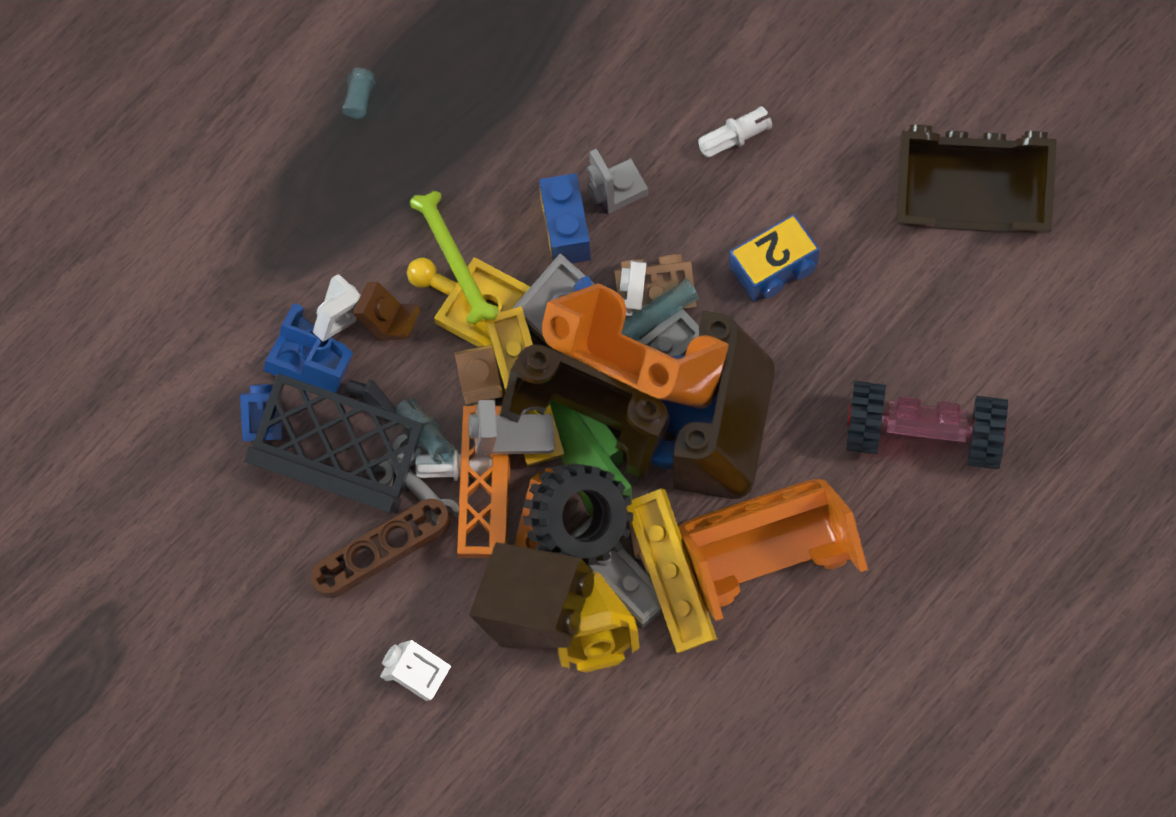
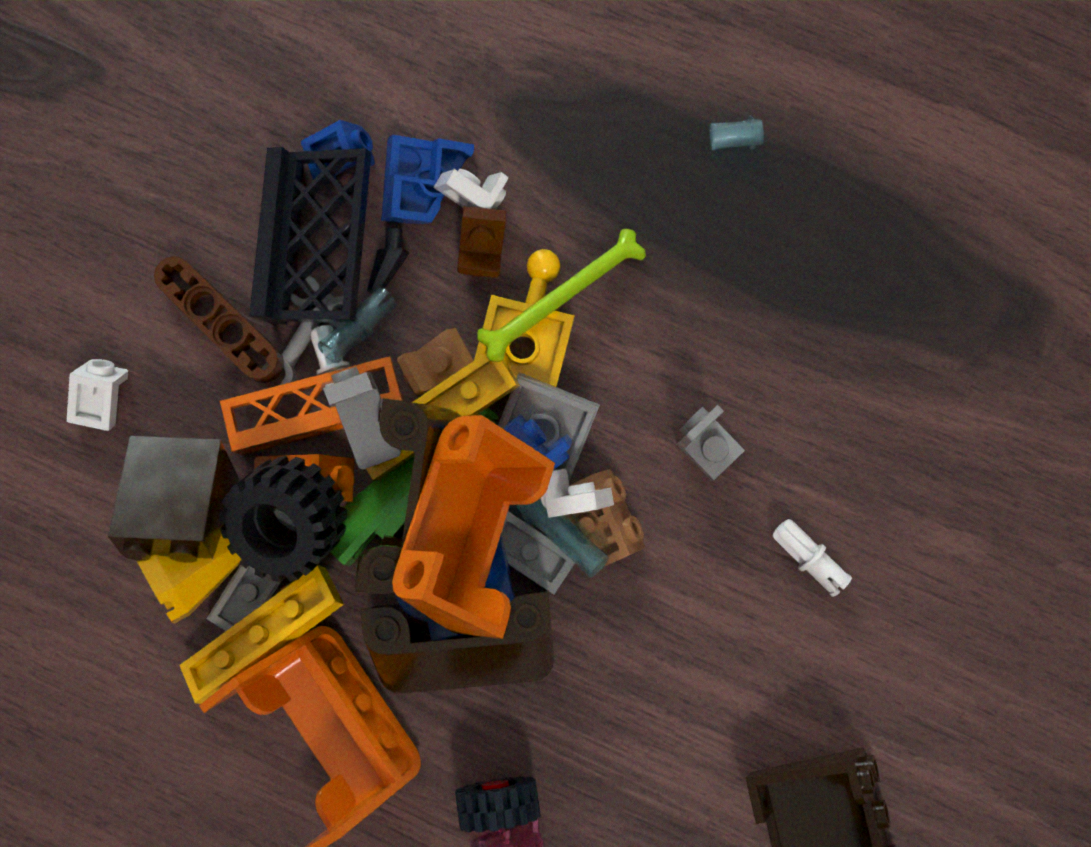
camera: 70 degrees right, 15 degrees up
(565, 218) = (647, 399): blue brick -> none
(774, 258) = (668, 645): brick -> none

